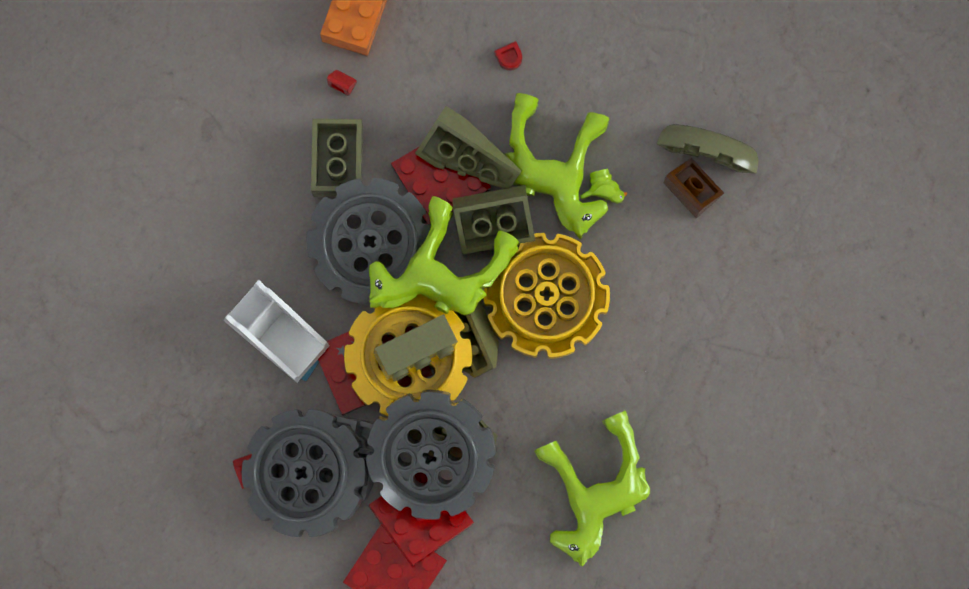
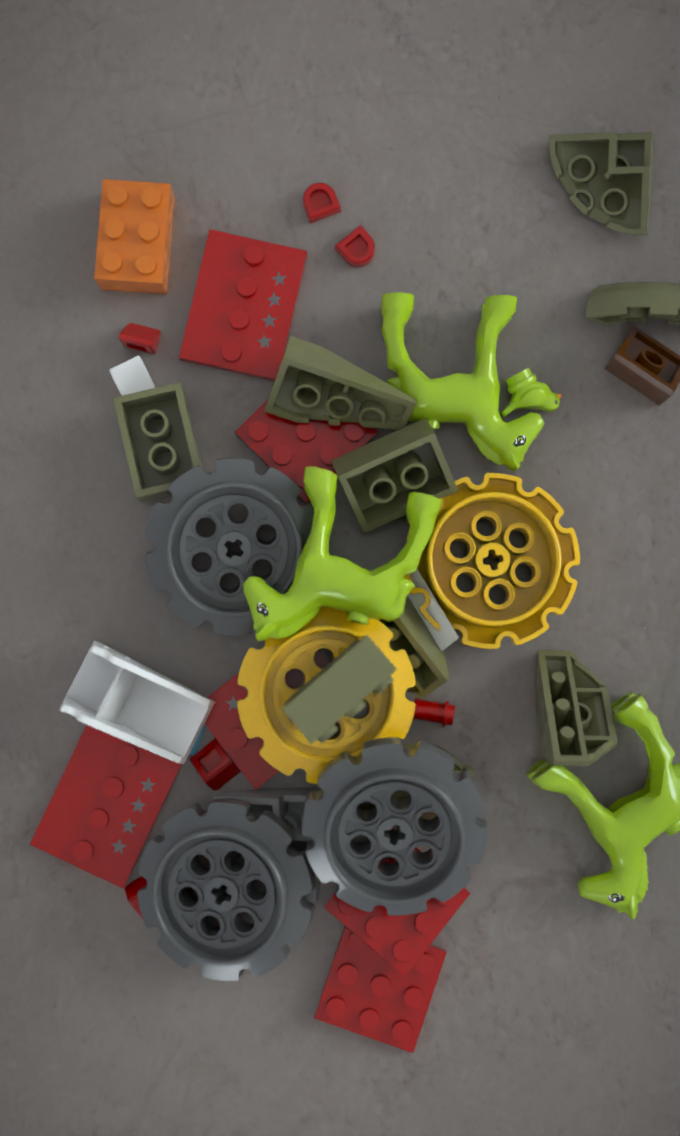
camera: 15 degrees left, 5 degrees up
(236, 398) = (105, 805): none -> red plate
(318, 391) = (214, 765): none -> red slope
(328, 107) = (131, 376): none -> white slope
(419, 76) = (243, 305): none -> red plate
(480, 391) = (434, 712): none -> red pin
(491, 18) = (320, 202): none -> red tile
(502, 337) = (447, 634): none -> white sticker
(577, 410) = (572, 710): none -> olive wedge
(699, 49) = (607, 176): none -> olive brick

